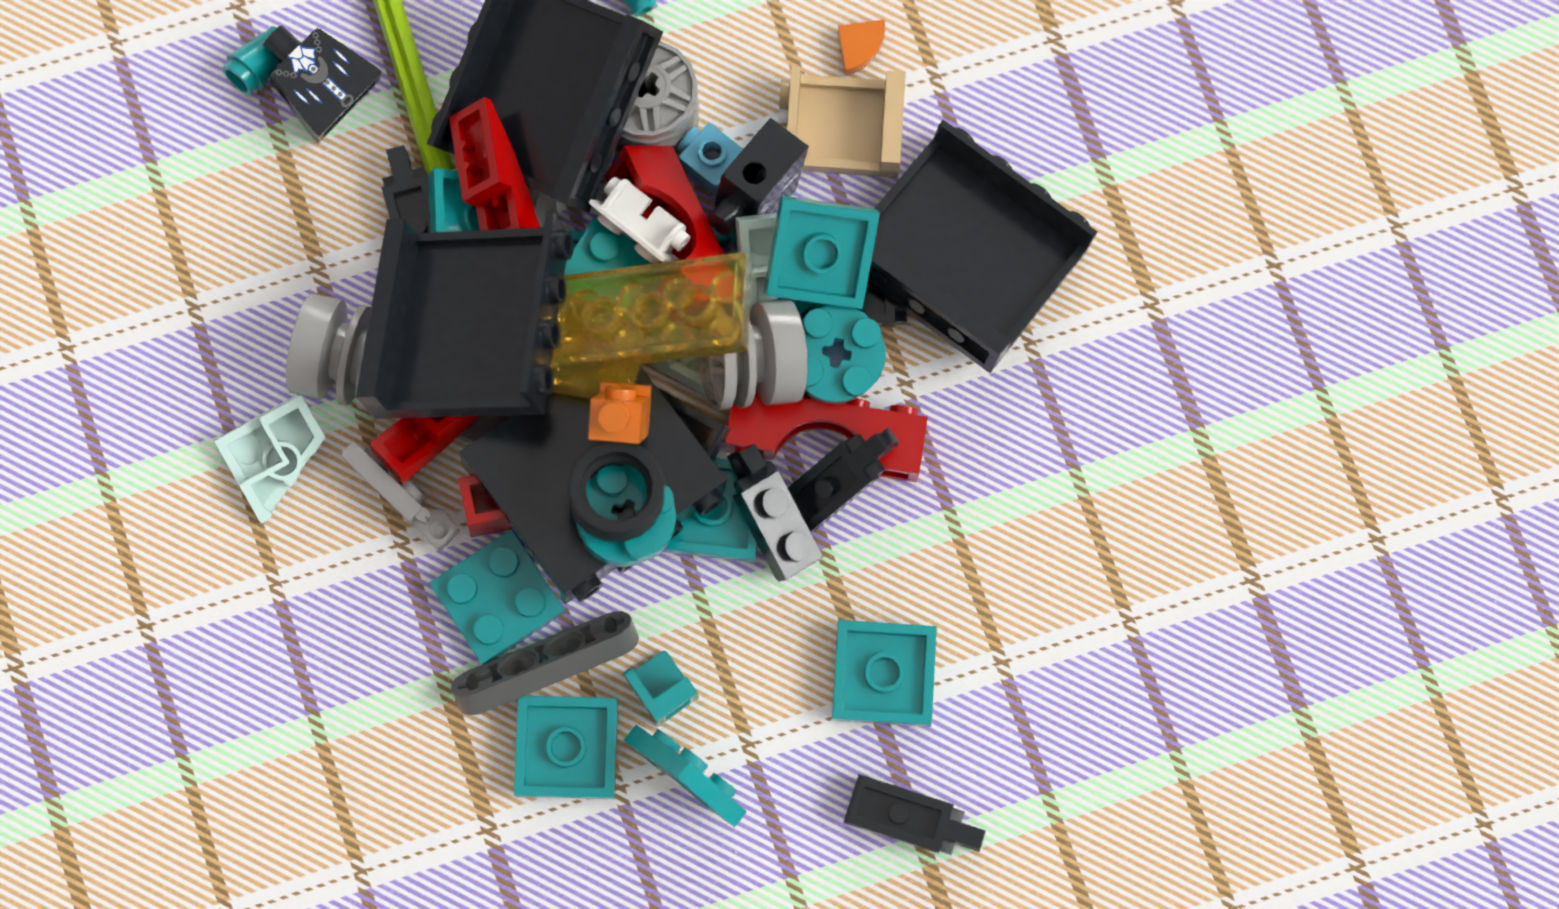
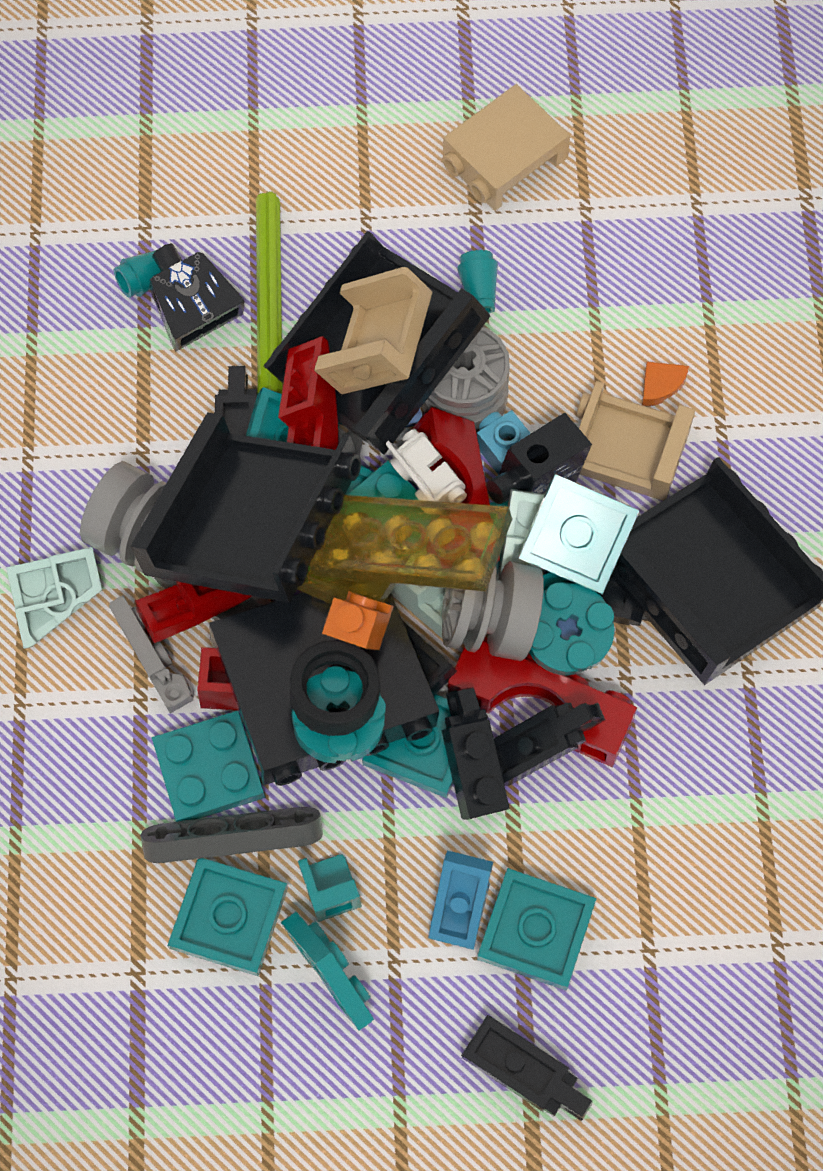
camera: 20 degrees right, 10 degrees down
(547, 81) = (381, 331): none -> tan panel
(800, 666) = (460, 899): none -> dark azure slope

